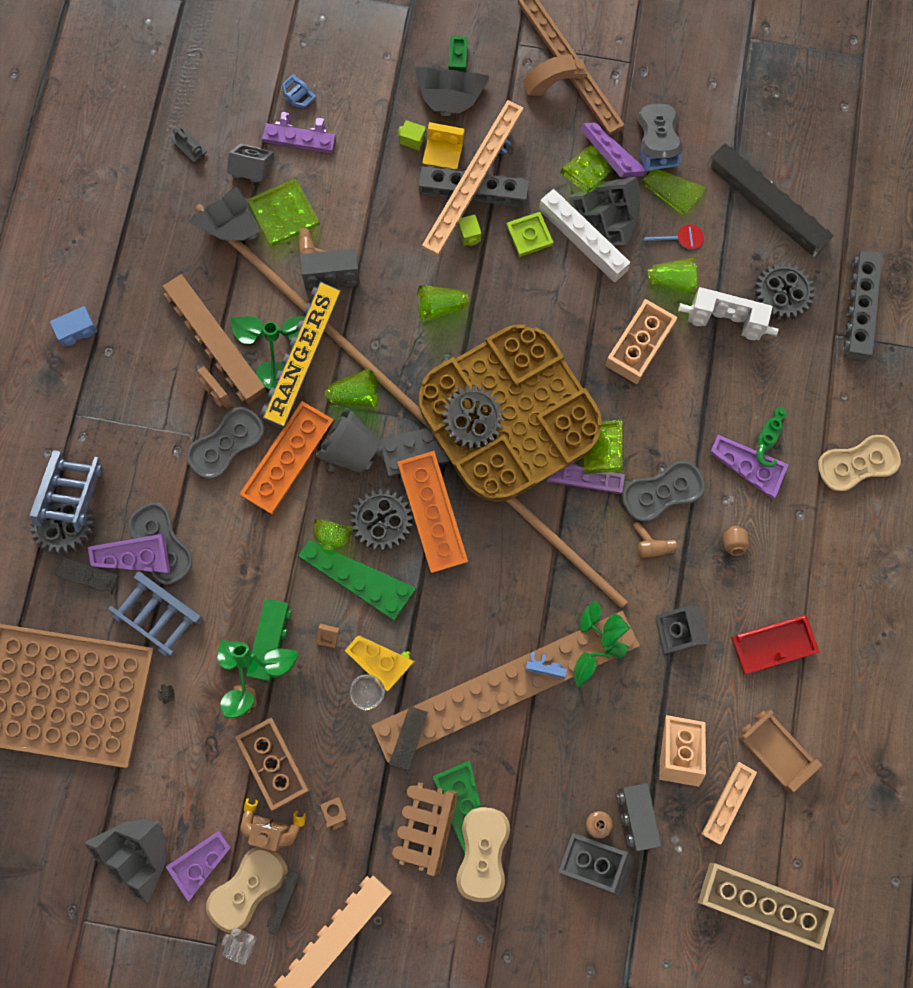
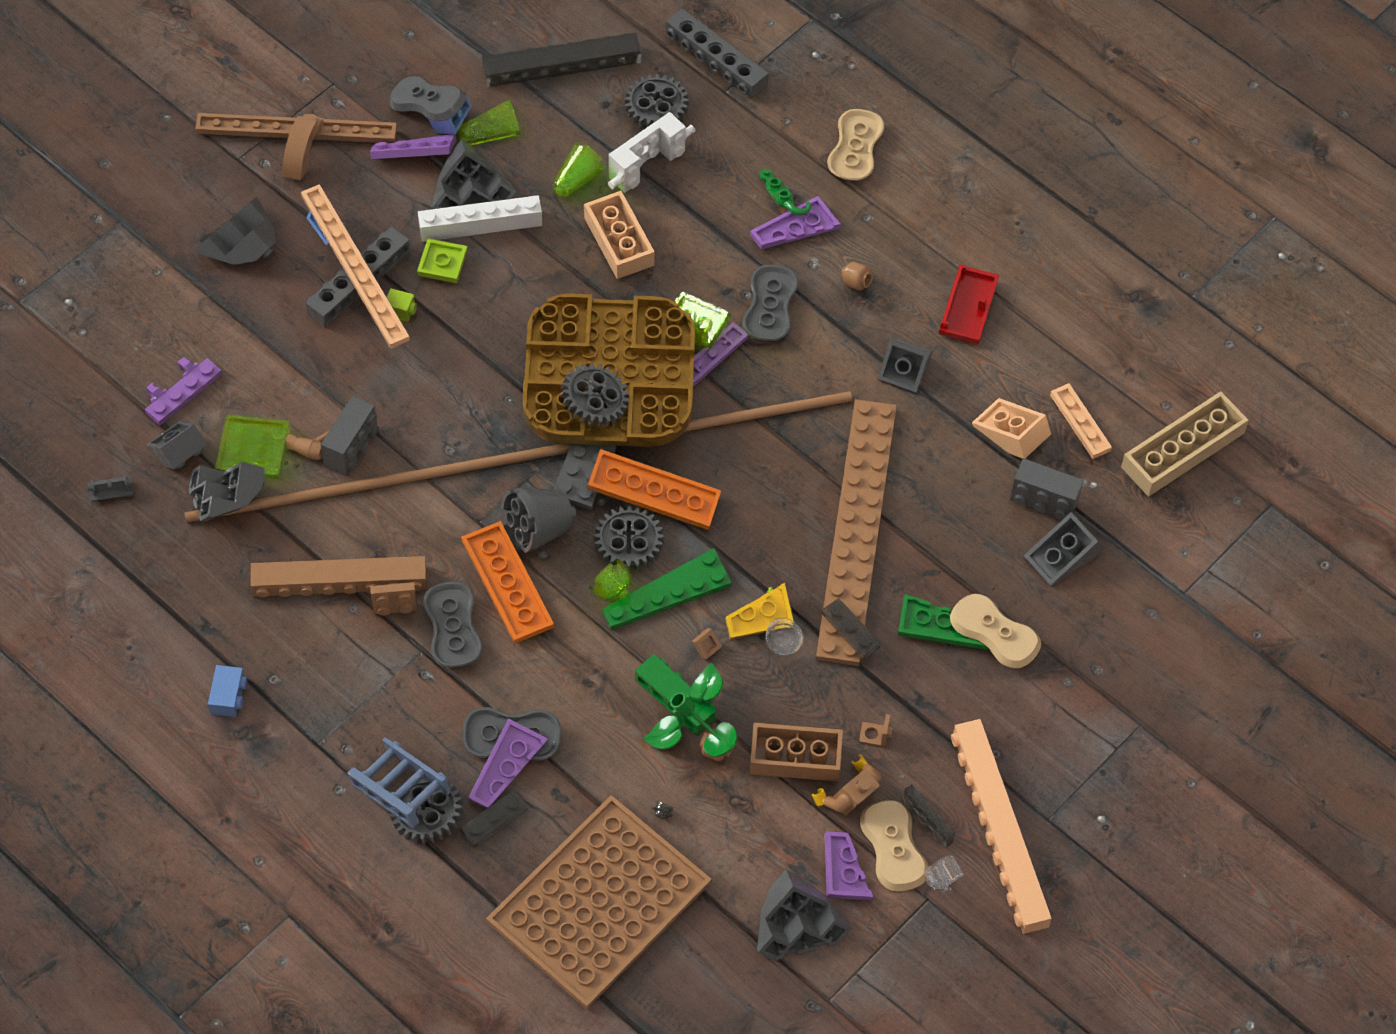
camera: 55 degrees left, 15 degrees down
(158, 595) = (582, 755): sand blue fence -> none
(246, 331) = (382, 502): green plant -> none
(297, 92) = (135, 363): medium blue piece -> none
(301, 355) = (417, 509): brick -> none
(354, 390) = (486, 486): clear neon green cone -> none
(412, 135) = (263, 295): lime brick -> none
(433, 819) = (952, 665): medium nougat fence -> none
(440, 301) = (452, 370): clear neon green cone -> none
(443, 146) = (296, 276): yellow bracket -> none
(458, 53) = (208, 210): green plate -> none
(554, 670) = (861, 487): medium blue plate -> none
(587, 169) = (418, 175): clear neon green plate -> none
(591, 824) = (1031, 526): medium nougat head -> none
(613, 629) = (874, 394): green plant -> none
(652, 548) = (815, 343): medium nougat piece -> none
(689, 237) = (545, 142): red piece -> none
(778, 751) = (1062, 358): medium nougat panel -> none

